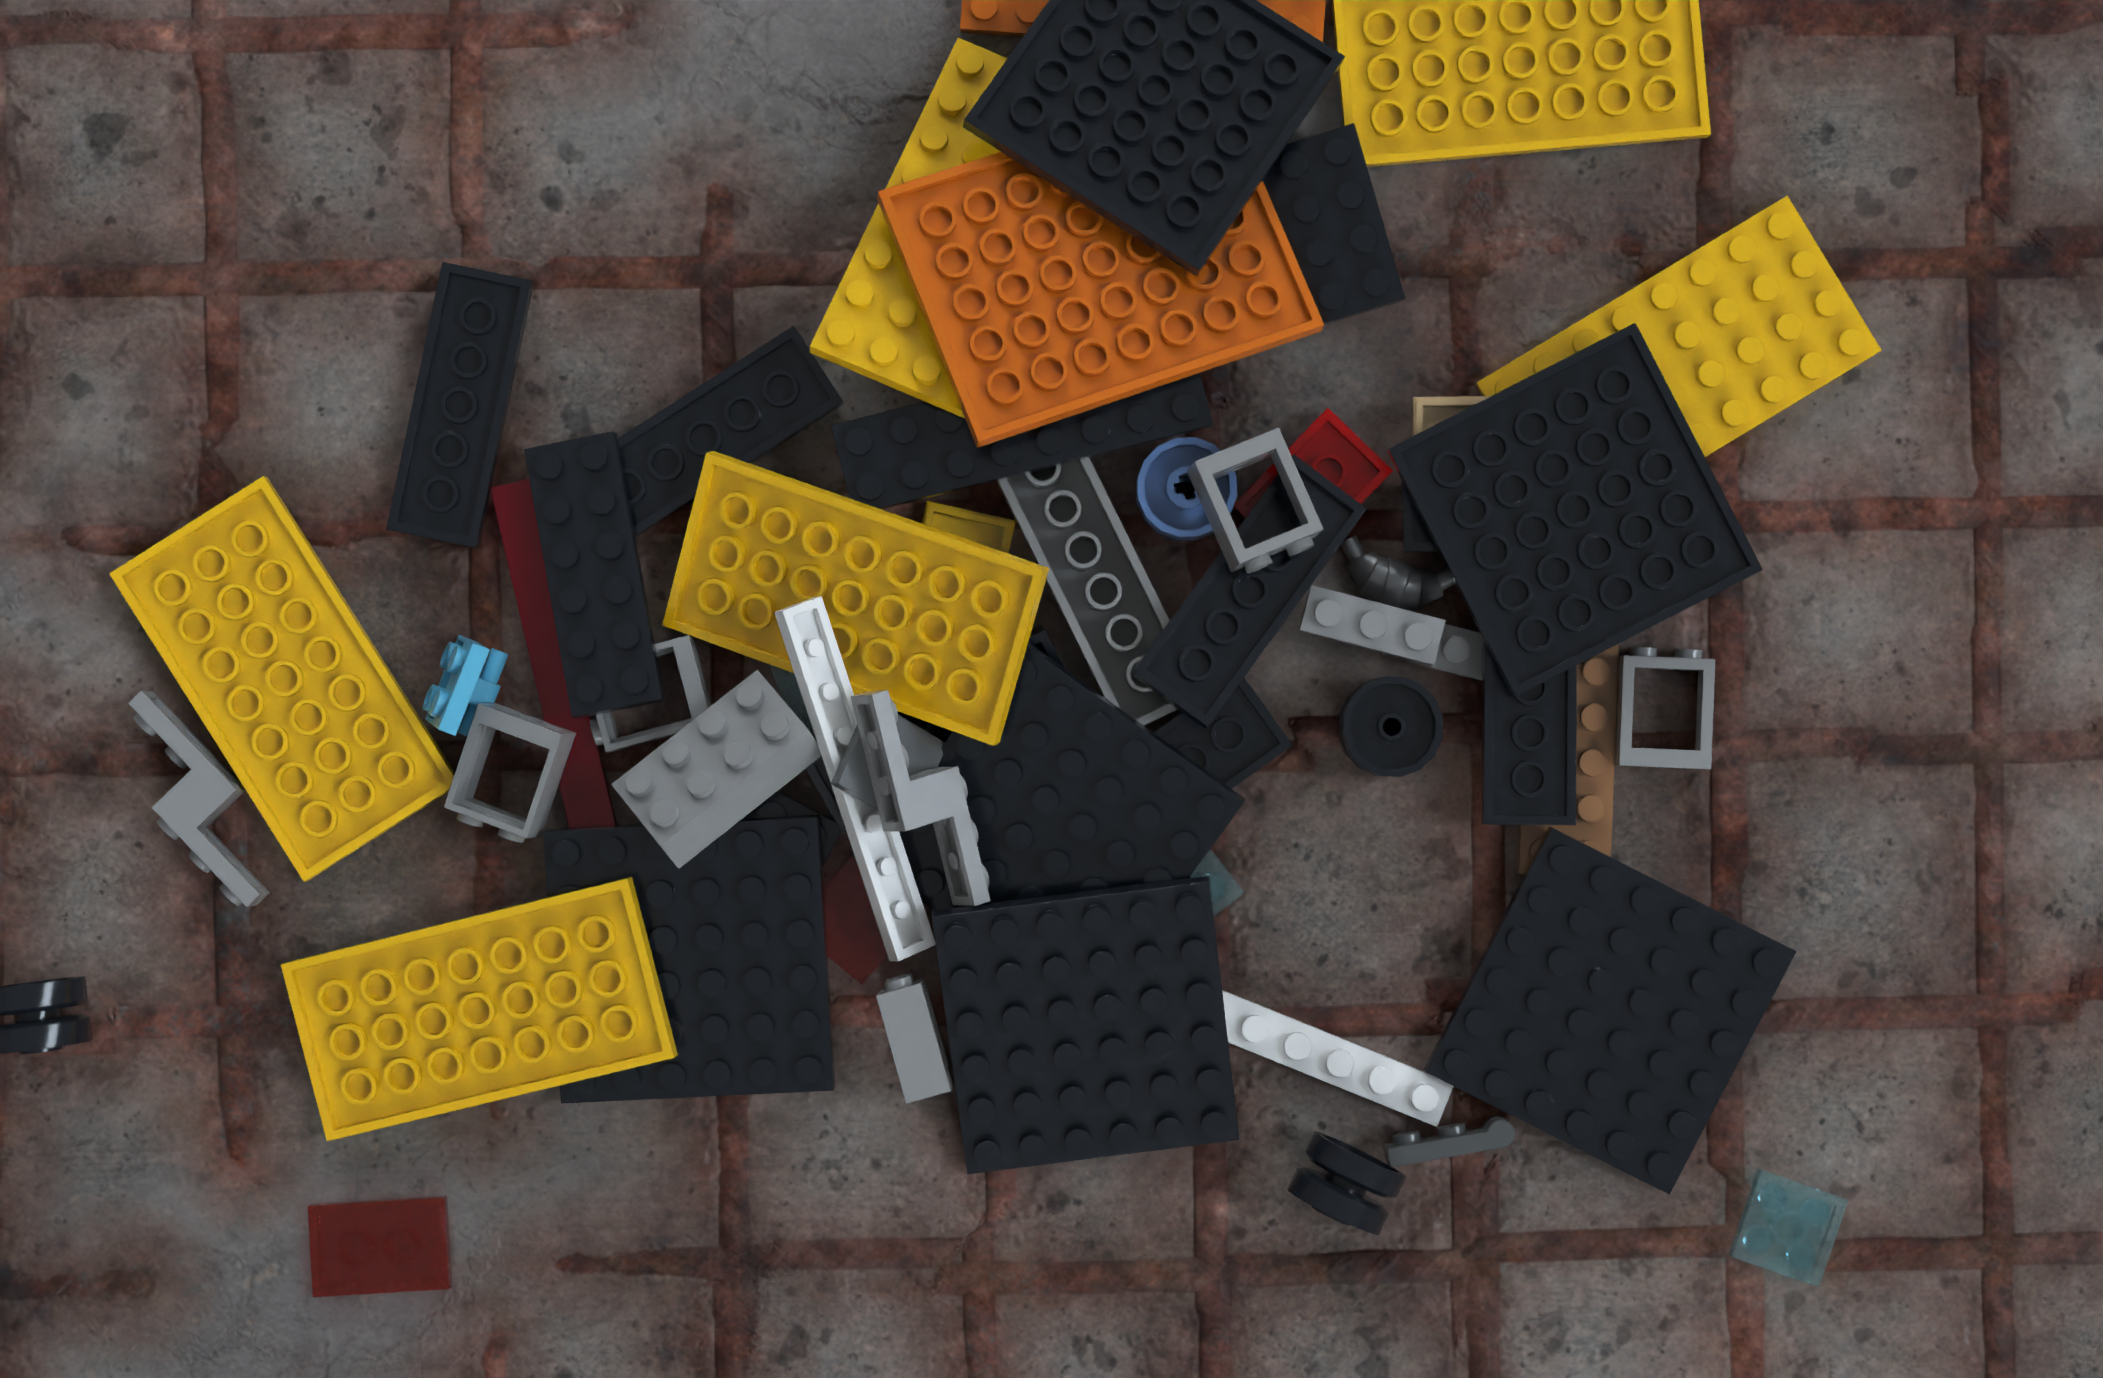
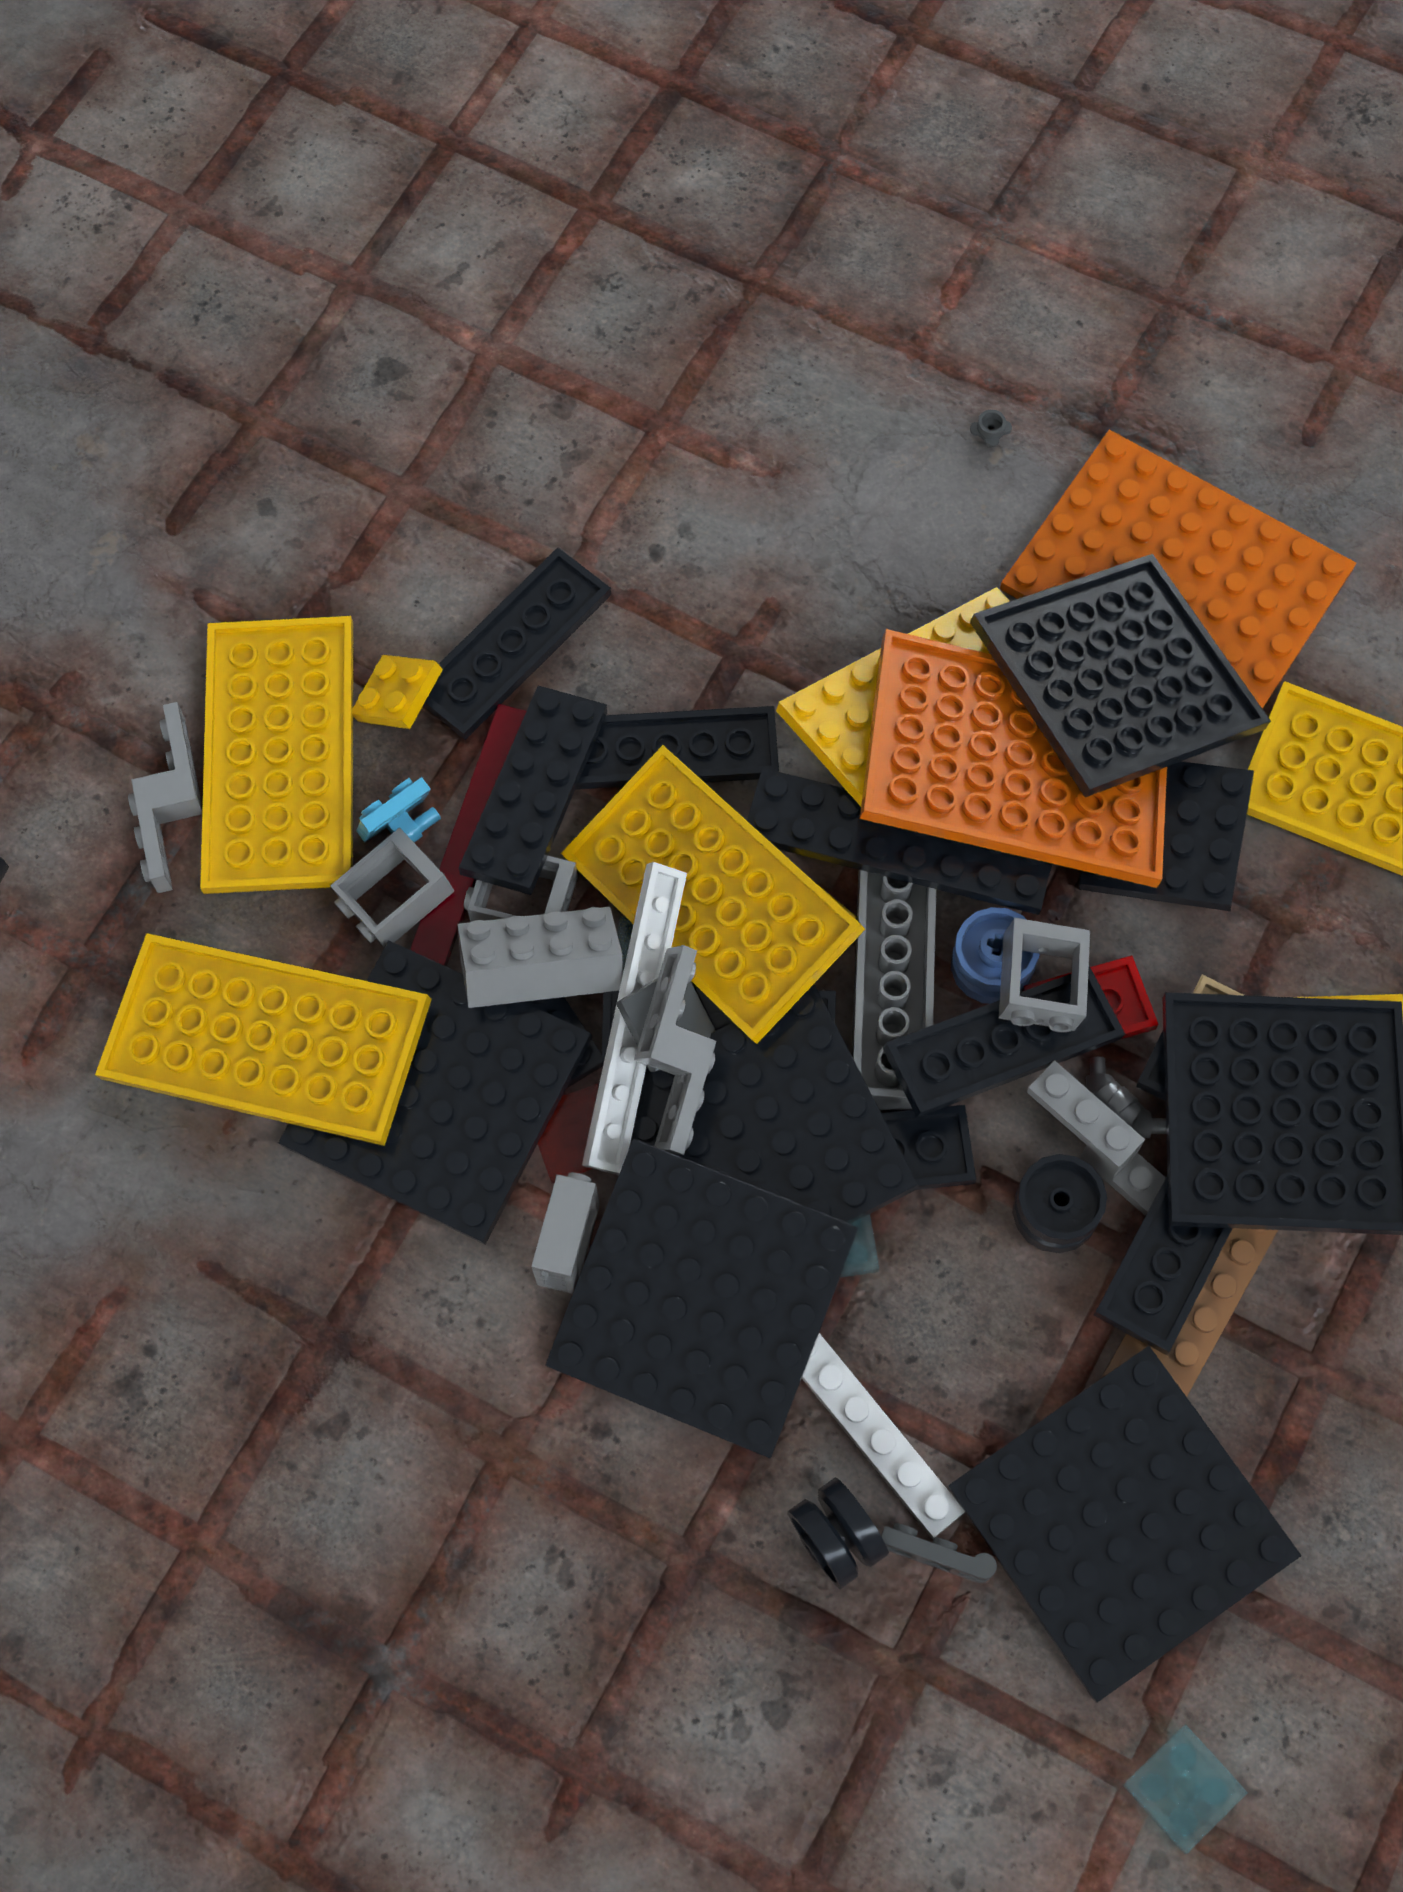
camera: 30 degrees right, 20 degrees down
(371, 539) = (396, 691): none -> yellow plate
(379, 1246) = (81, 1175): clear red tile -> none
(1666, 758) = (1265, 1346): light grey window -> none

